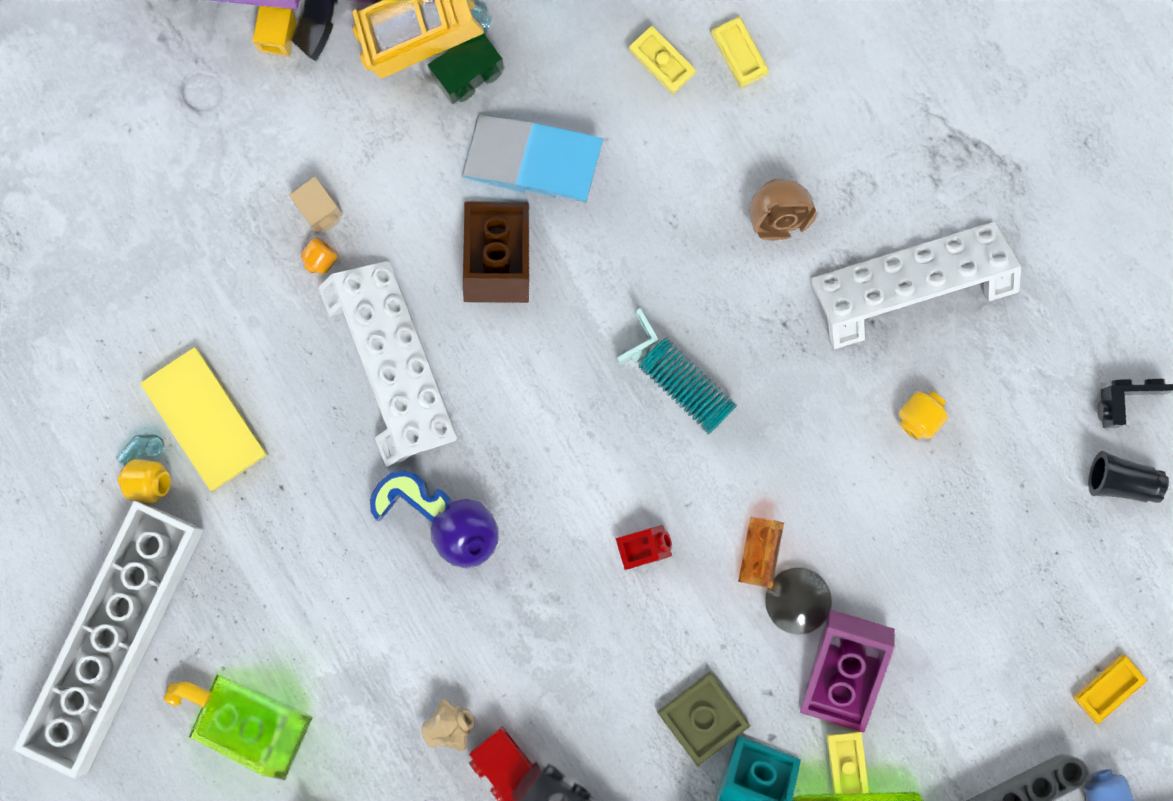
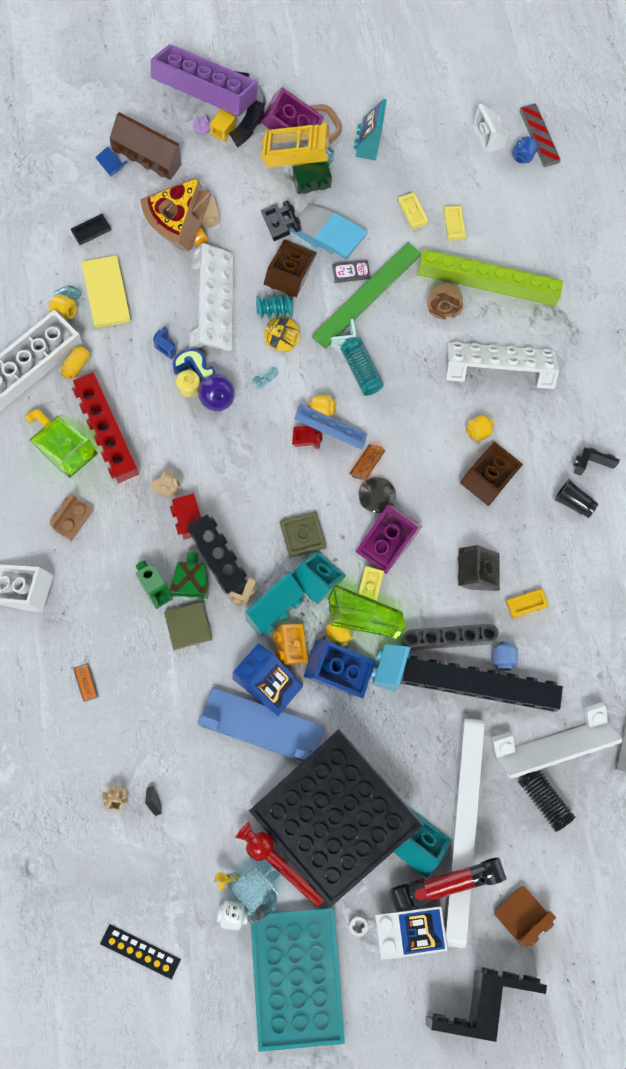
camera: 10 degrees right, 10 degrees down
(111, 178) = (109, 161): none -> blue bracket
(130, 317) = (90, 229): none -> black plate
(159, 129) = (145, 146): none -> reddish brown slope
(206, 572) = (74, 362): none -> yellow head
(238, 43) = (201, 125): none -> lavender plate
(253, 600) = (89, 385): none -> red brick
(266, 239) = (177, 212): none -> piece
(346, 480) = (163, 344): none -> blue bracket
(410, 534) = (188, 383): none -> light yellow head
(436, 175) = (274, 220): none -> black plate
(498, 335) = (274, 306): none -> teal piece
(530, 377) = (282, 334): none -> yellow dish
(537, 468) = (268, 377): none -> clear light blue arm
(600, 215) = (351, 271): none -> tile
(643, 248) = (366, 295): none -> bright green tile
(649, 484) = (323, 404): none -> yellow head
(677, 517) = (330, 426): none -> medium blue tile
(840, 134) = (490, 277): none -> lime brick
(972, 489) = (491, 473): none -> reddish brown slope
(1012, 665) = (478, 568): none -> clear smoke slope

